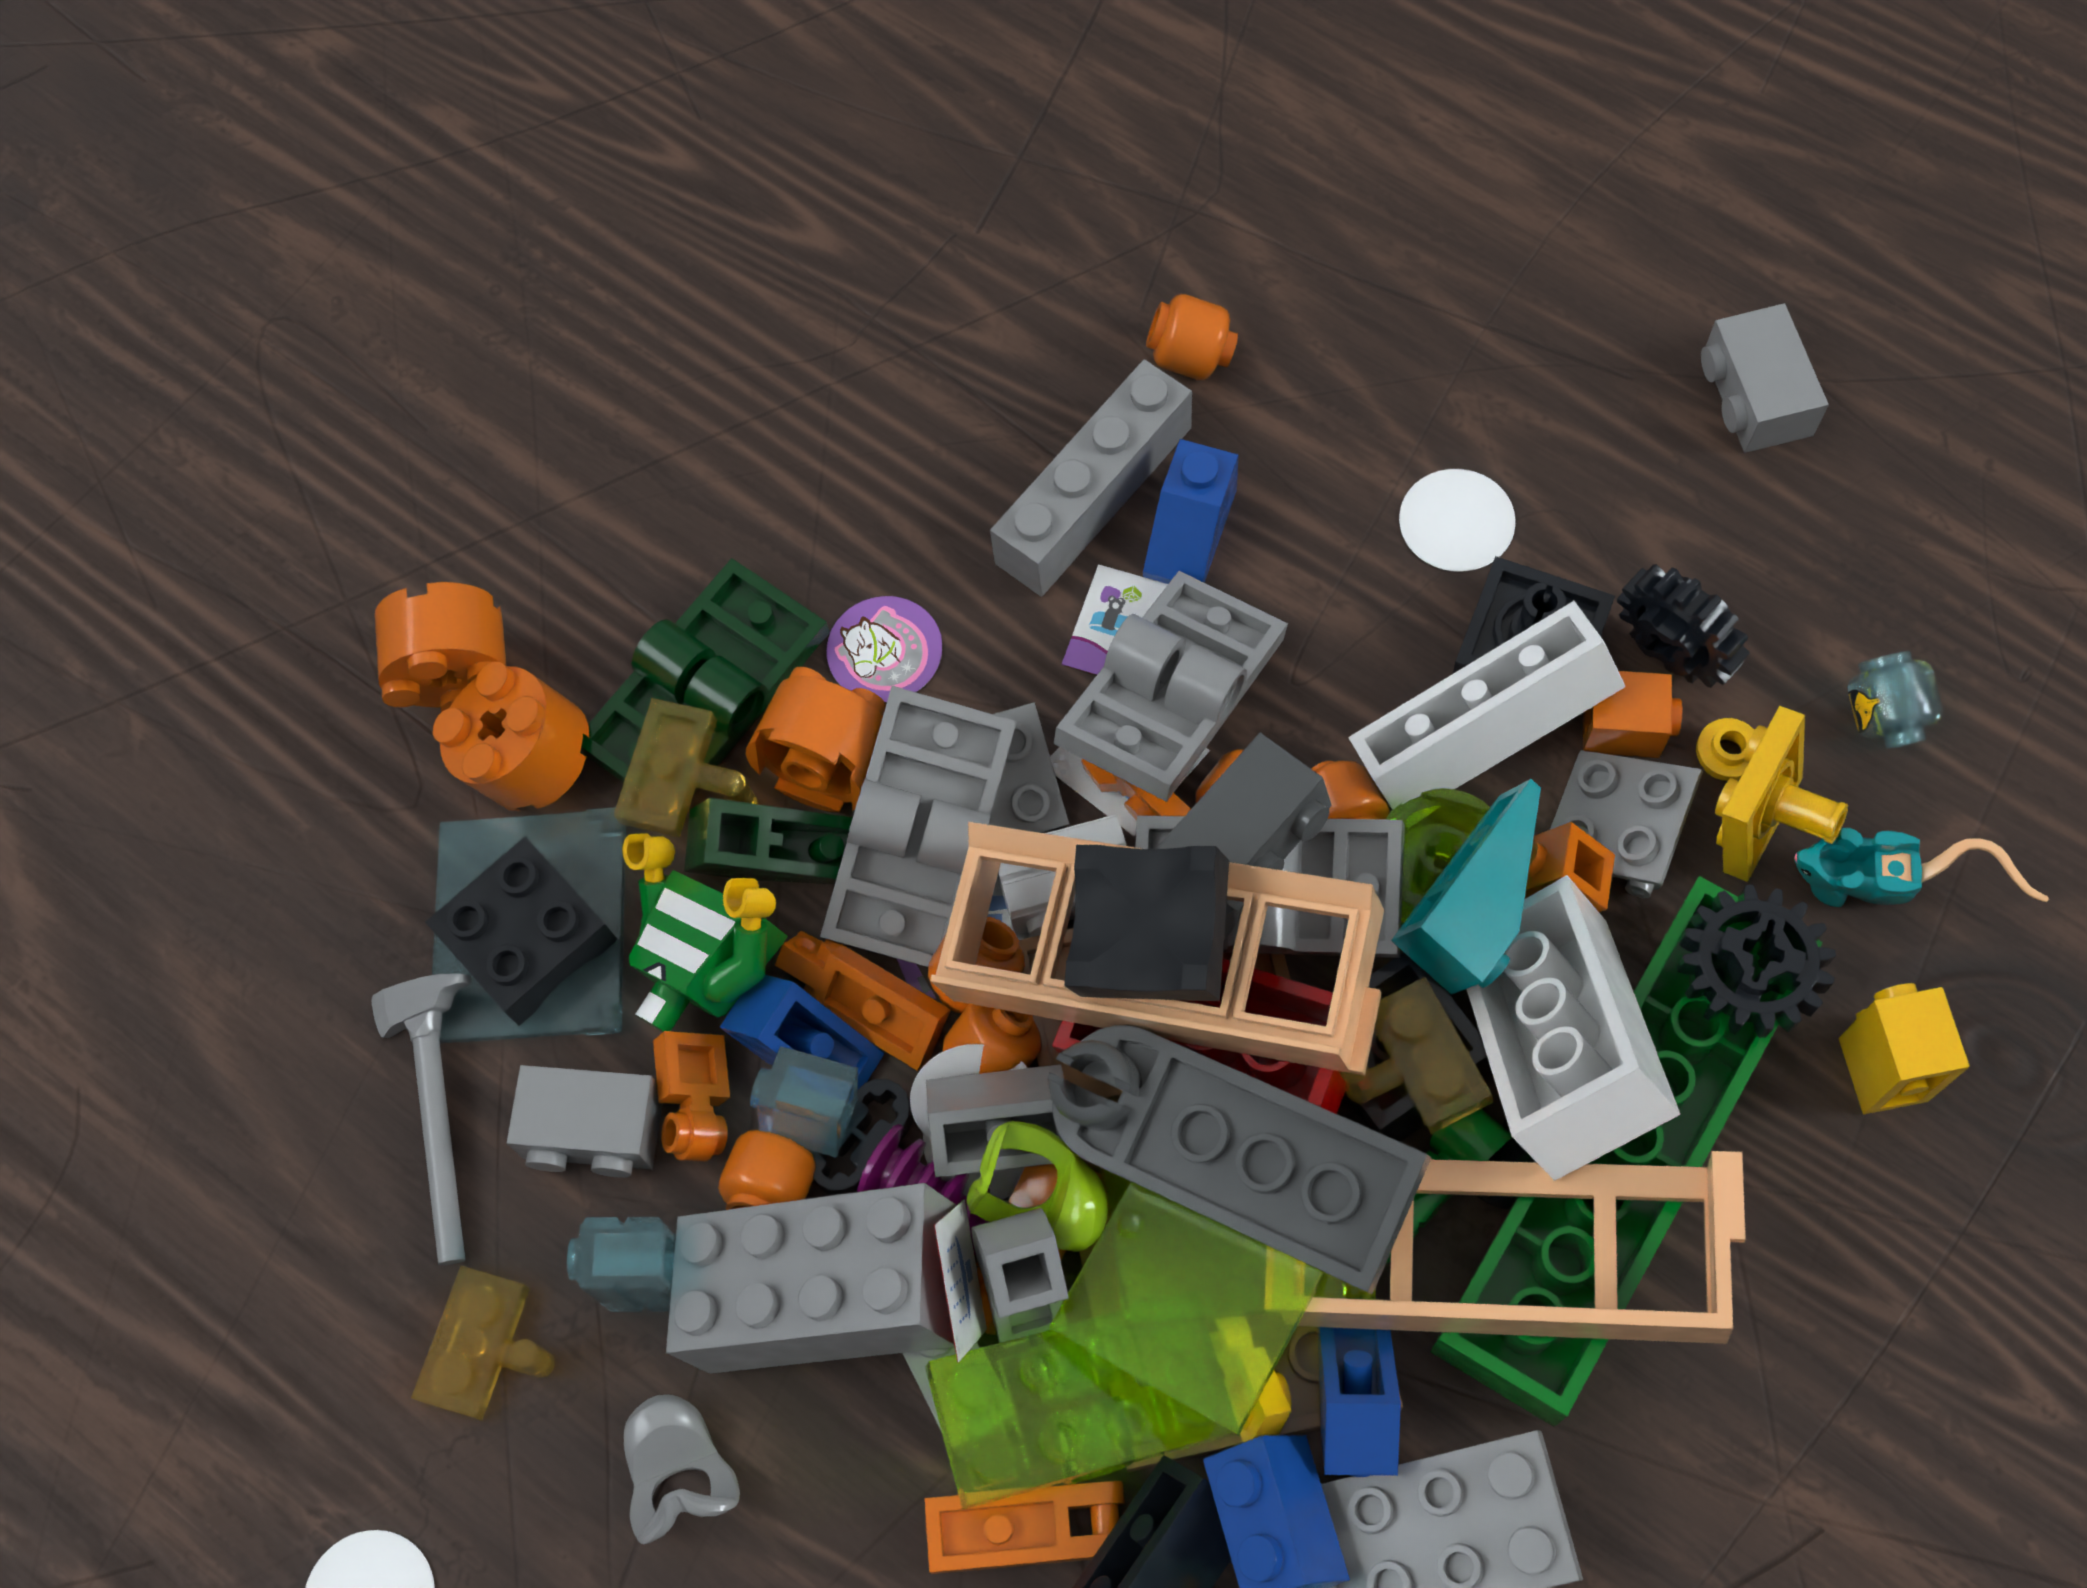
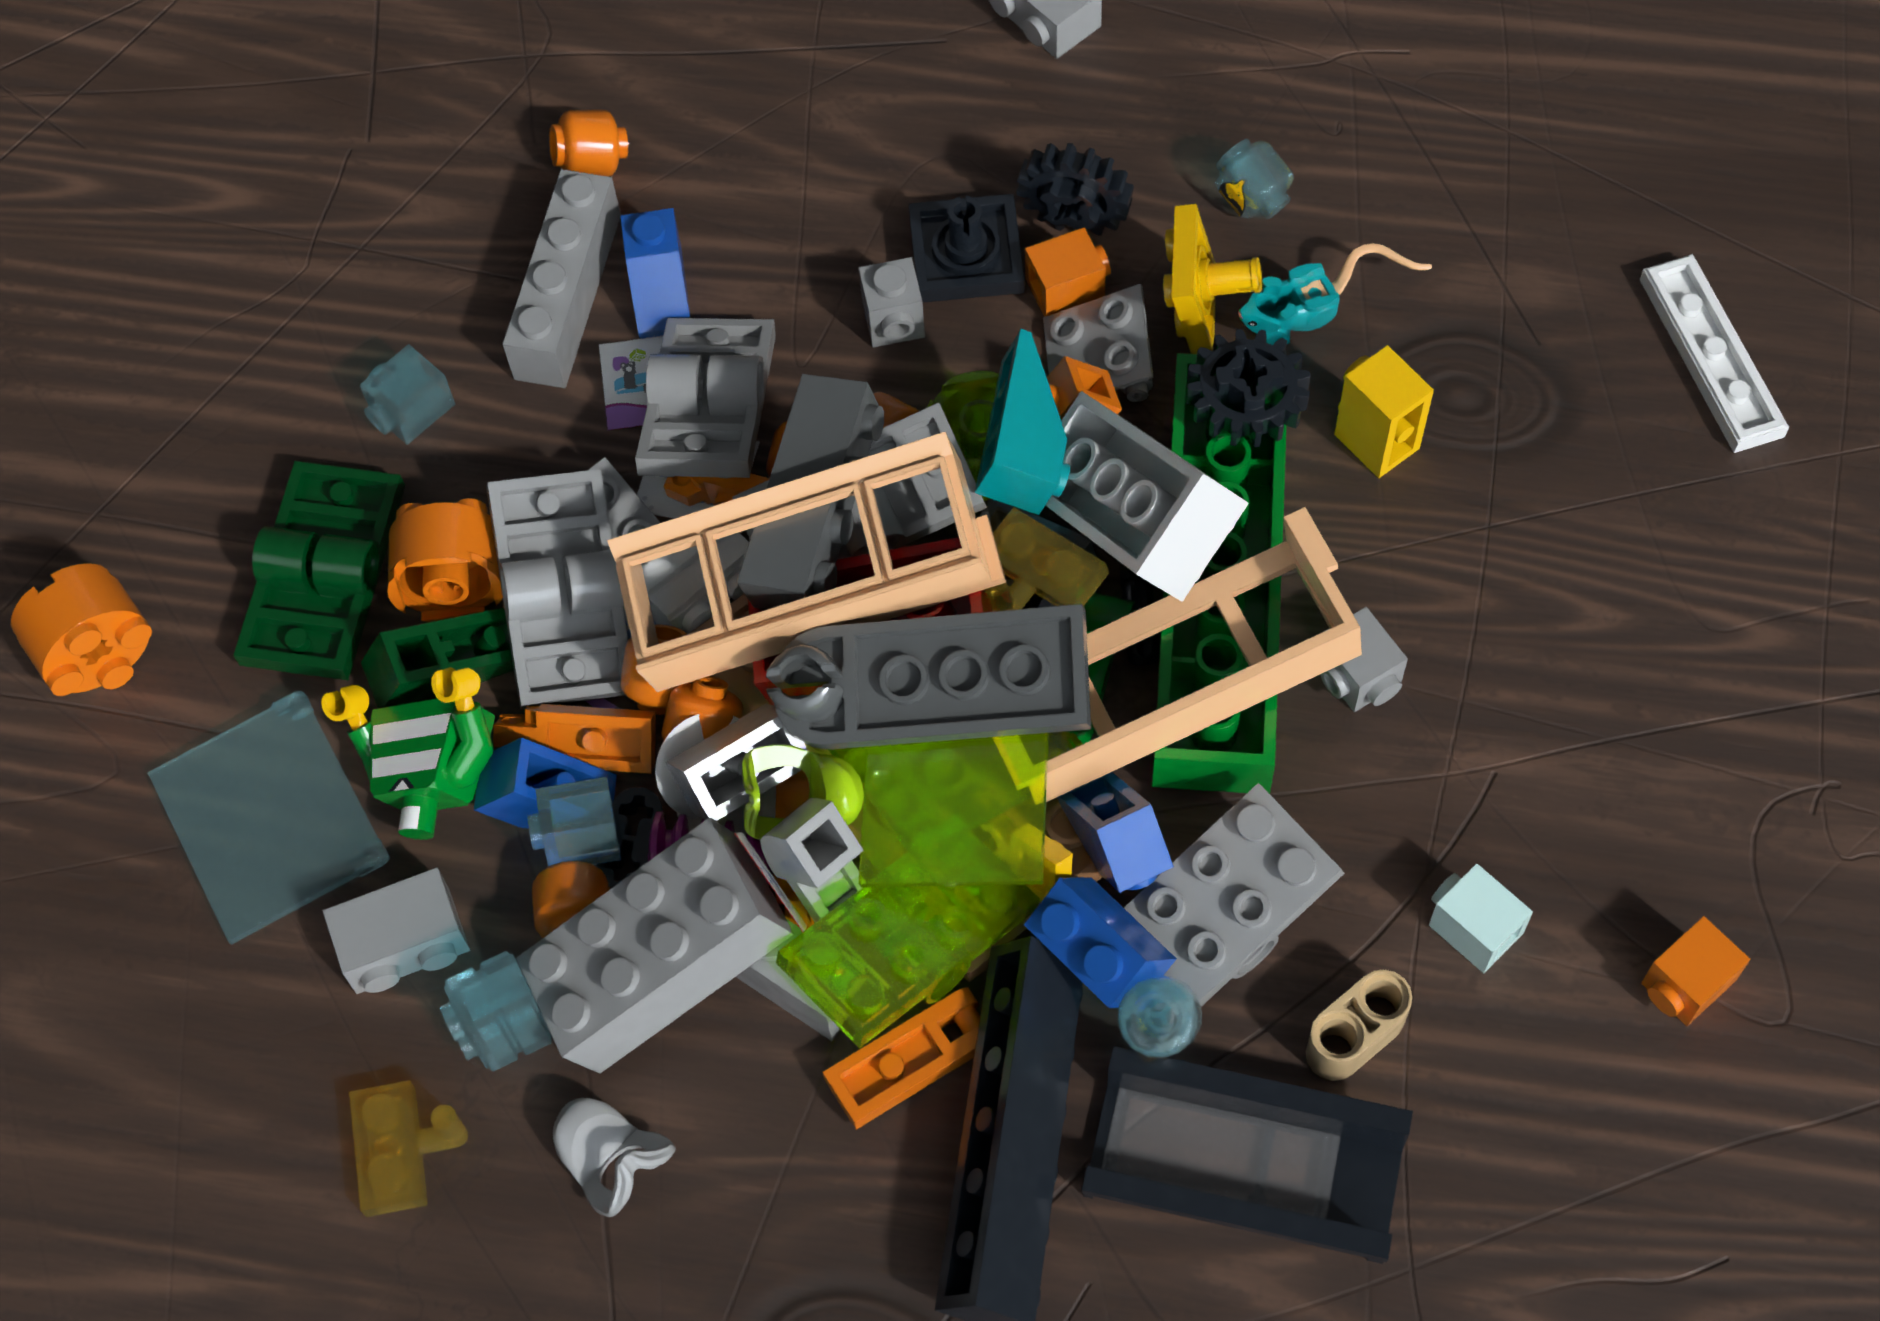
camera: 30 degrees left, 5 degrees down
(419, 1009) = (209, 916): light grey piece -> none
(512, 738) = (182, 671): orange brick -> none
(520, 930) = (266, 814): black brick -> none
(670, 767) = (330, 632): clear yellow plate -> none
(695, 1075) = (471, 857): orange plate -> none
(874, 535) = (406, 395): none -> clear light blue brick
(884, 646) = (454, 471): sticker -> none
(1148, 923) = (789, 536): black brick -> none
(1419, 656) = (892, 302): none -> light grey brick
(1457, 520) = (864, 195): white sticker -> none
(1490, 708) = (962, 303): white brick -> none
(1712, 756) = (1148, 277): yellow plate -> none
(1754, 1337) = (1374, 674): none -> light grey brick

